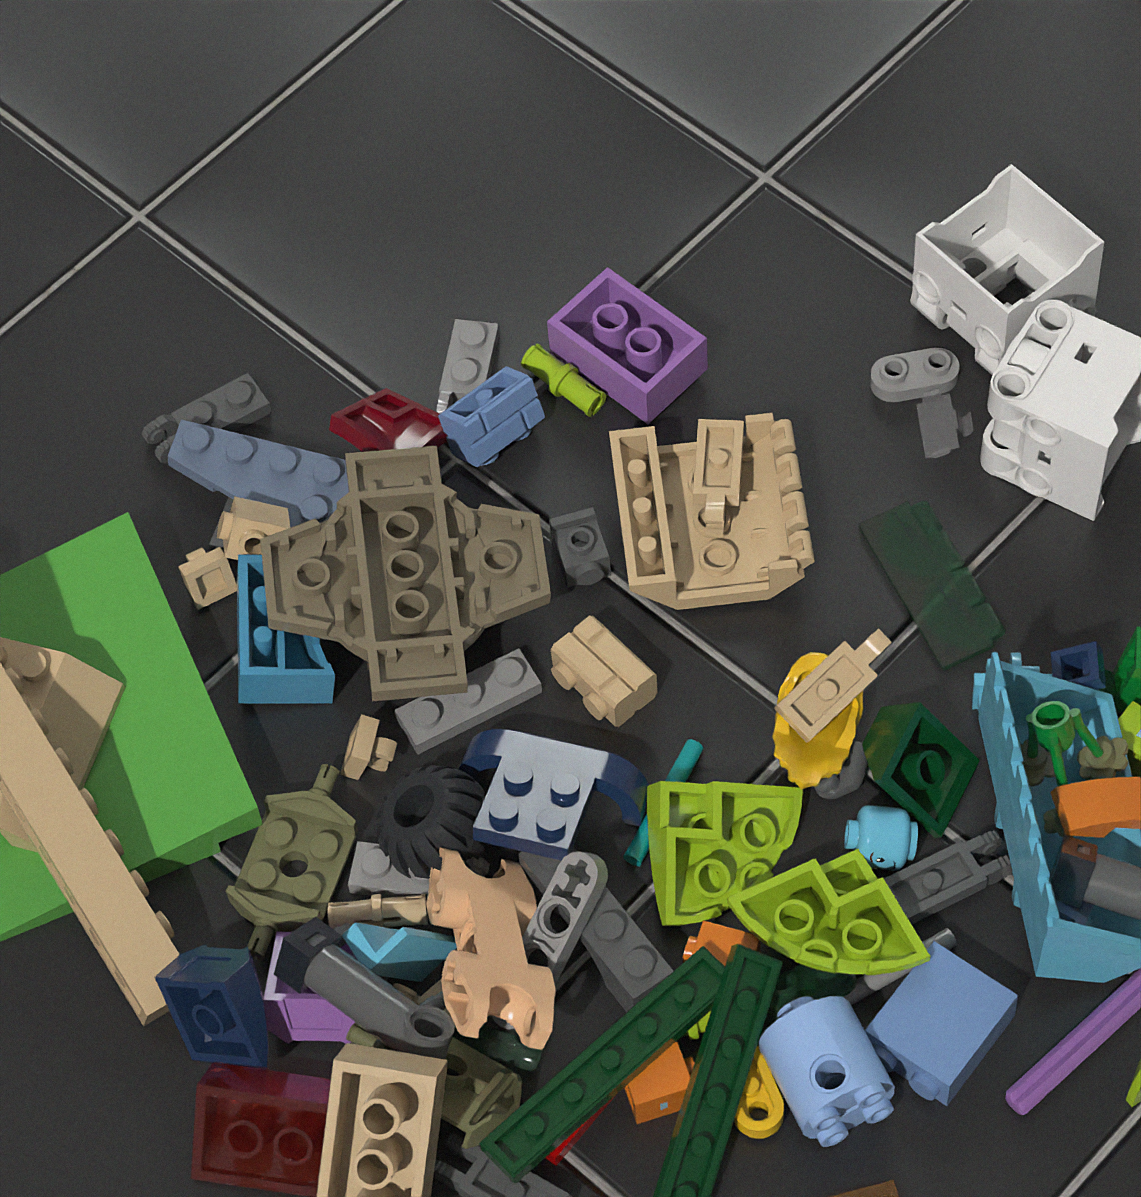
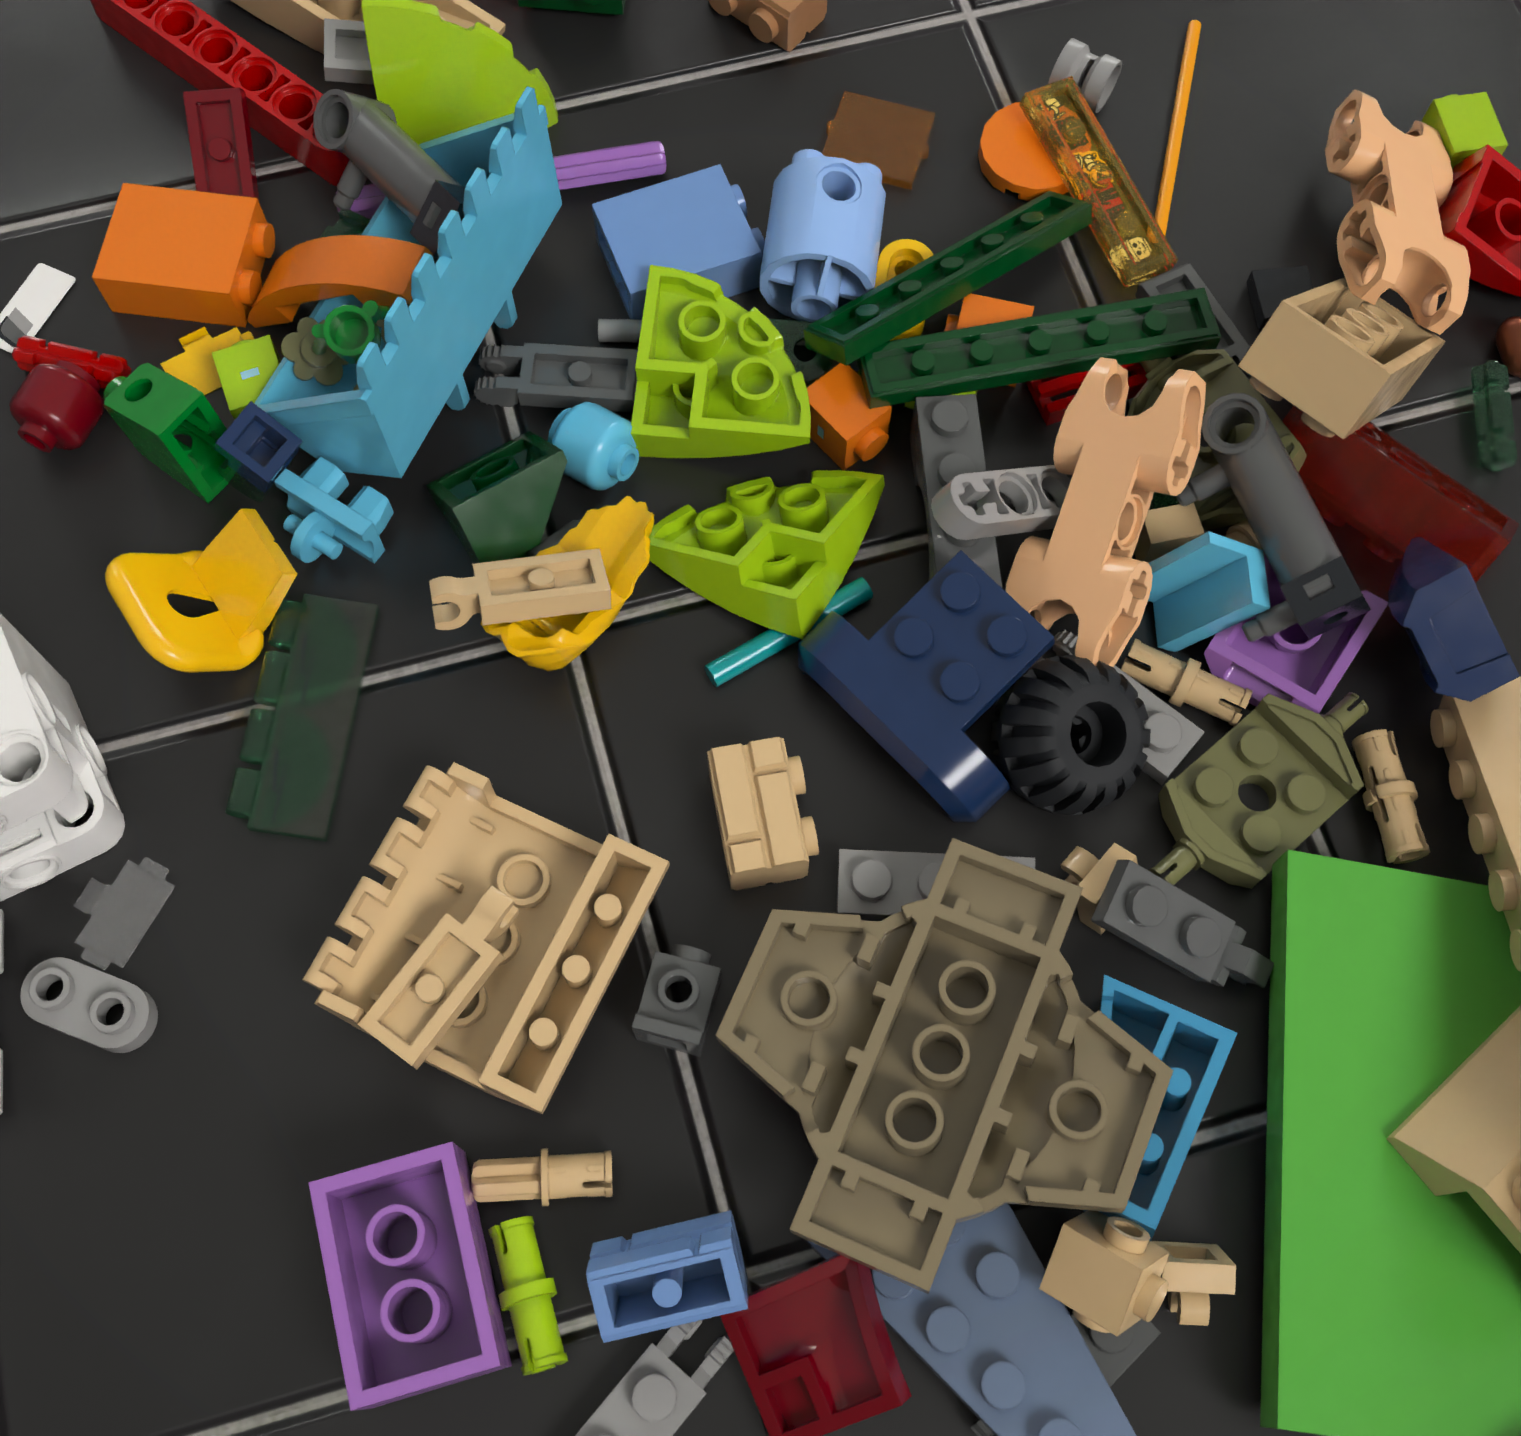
camera: 155 degrees left, 10 degrees up
(203, 909) = (1390, 797): none -> tan pin
(302, 738) = (1177, 928): none -> dark grey hinge
(593, 432) = (543, 1177): none -> tan axle
(1017, 587) = (237, 571): none -> yellow piece

